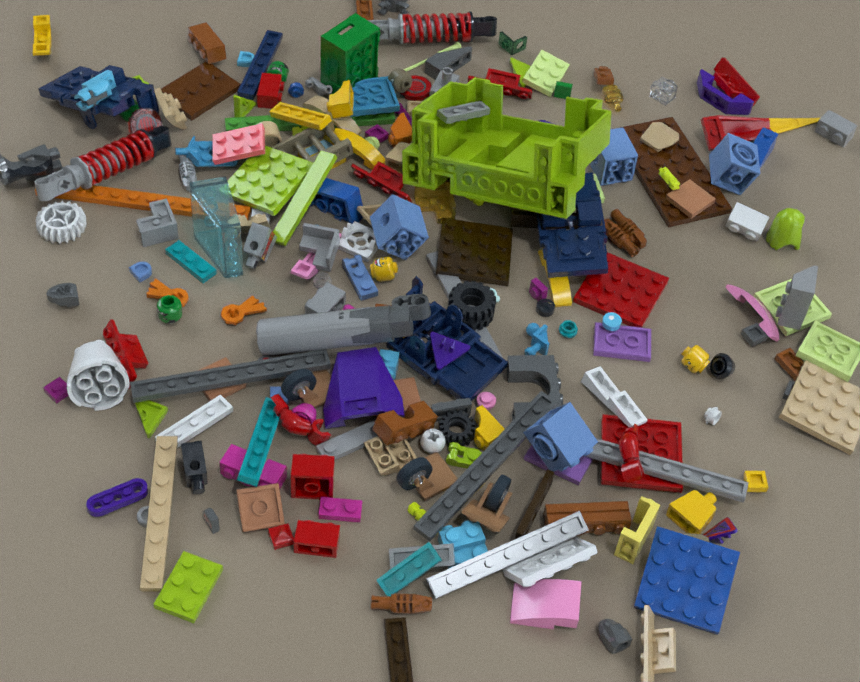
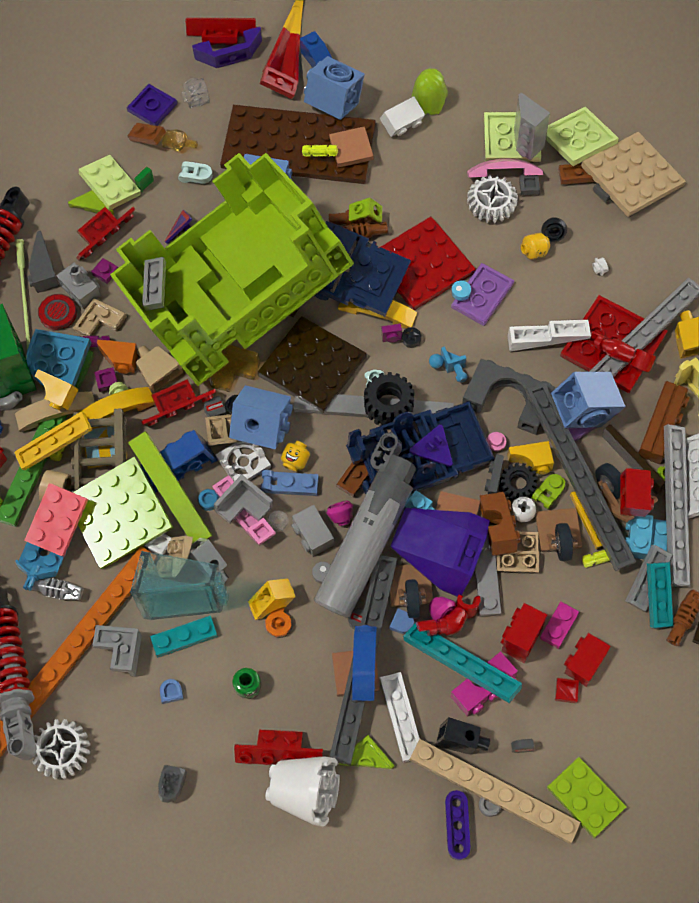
camera: 55 degrees left, 15 degrees up
(56, 390) = (291, 835): magenta plate -> none
(159, 290) = (223, 673): orange piece -> none
(219, 362) = (364, 663): none -> blue arch
(251, 297) = (270, 597): none -> yellow arch
(260, 507) = (535, 696): nougat tile -> none
(400, 80) = (47, 320): dark tan head -> none
(490, 502) = (636, 492): none -> red brick
(510, 45) = (48, 195): clear green bracket -> none
(568, 329) = (447, 326): teal plate -> none
(633, 72) = (152, 105): none -> dark purple tile
(635, 224) = (364, 209): none -> lime bracket
(659, 136) = (260, 128): tan slope -> none
(713, 312) = (481, 195): none -> white gear
(757, 481) = (682, 270): yellow plate -> none

